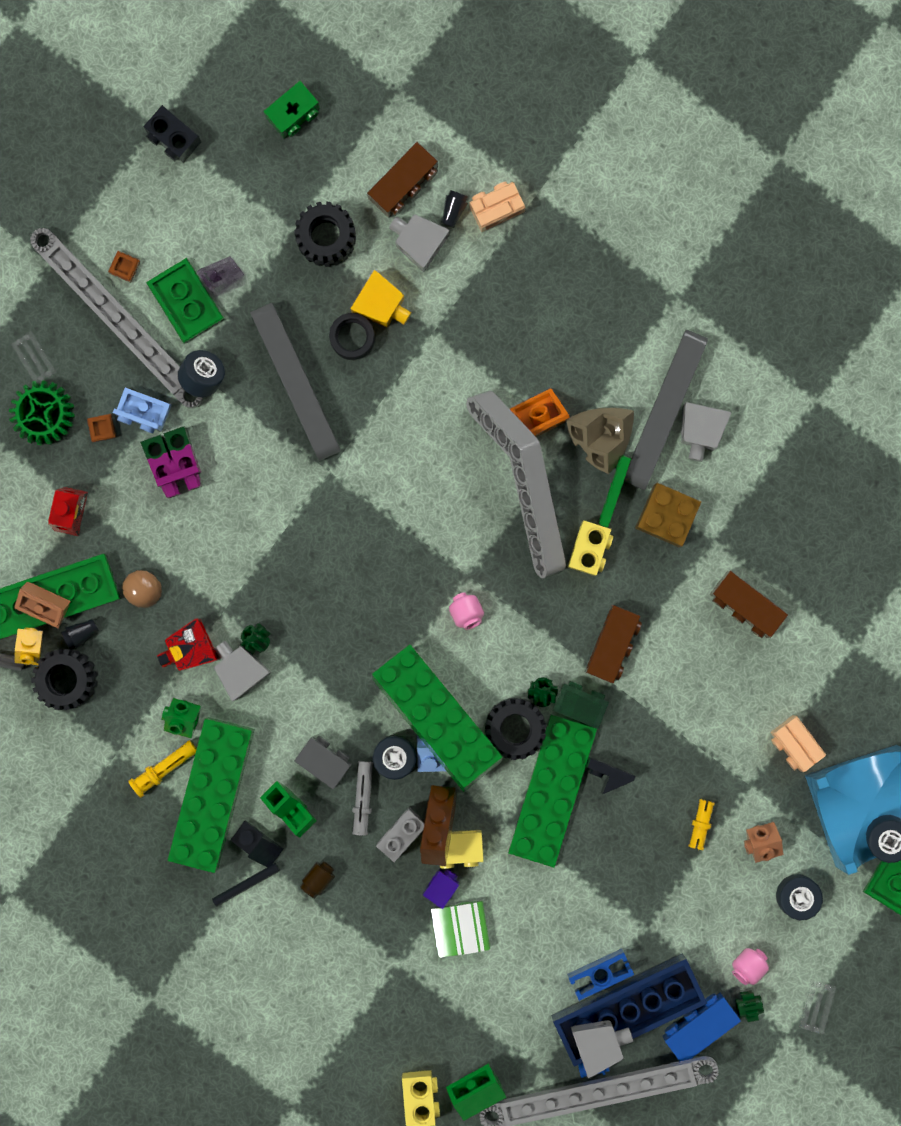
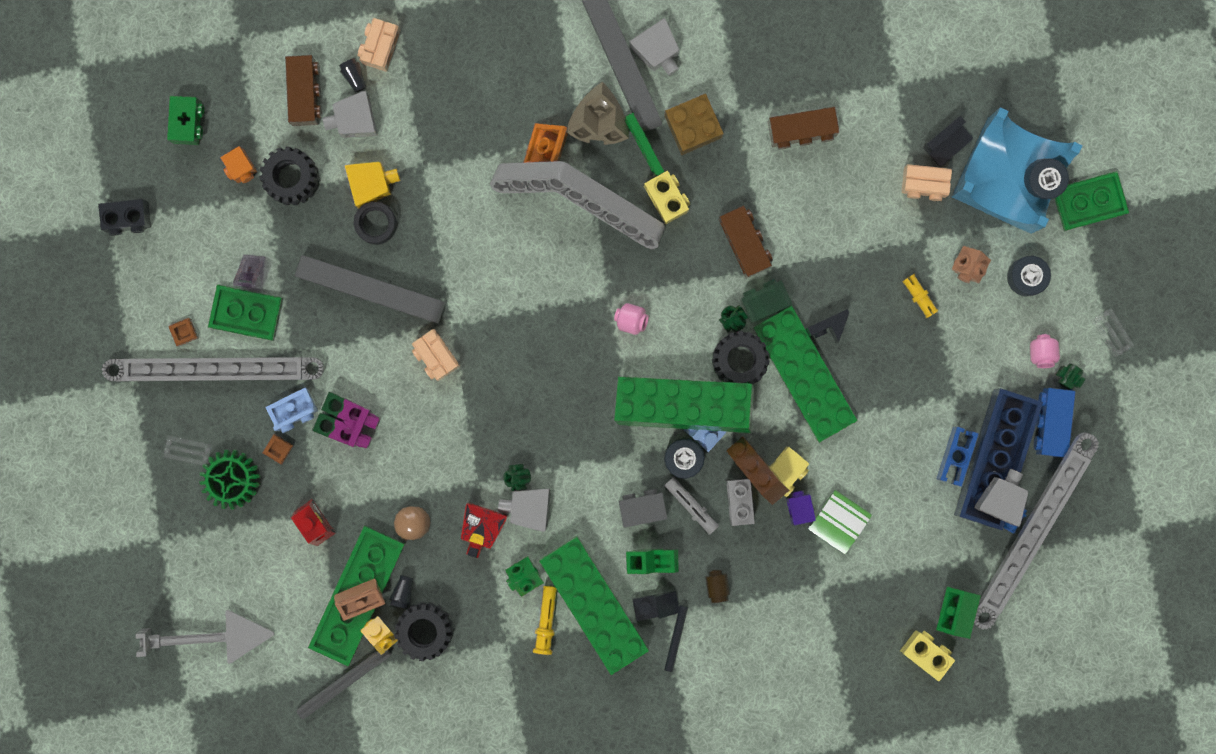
camera: 45 degrees left, 0 degrees up
(201, 373) = (304, 347): black wheel -> none
(291, 482) = (435, 355): none -> light nougat brick
(296, 186) = (238, 165): none -> orange brick
(846, 732) = (948, 142): none -> black panel

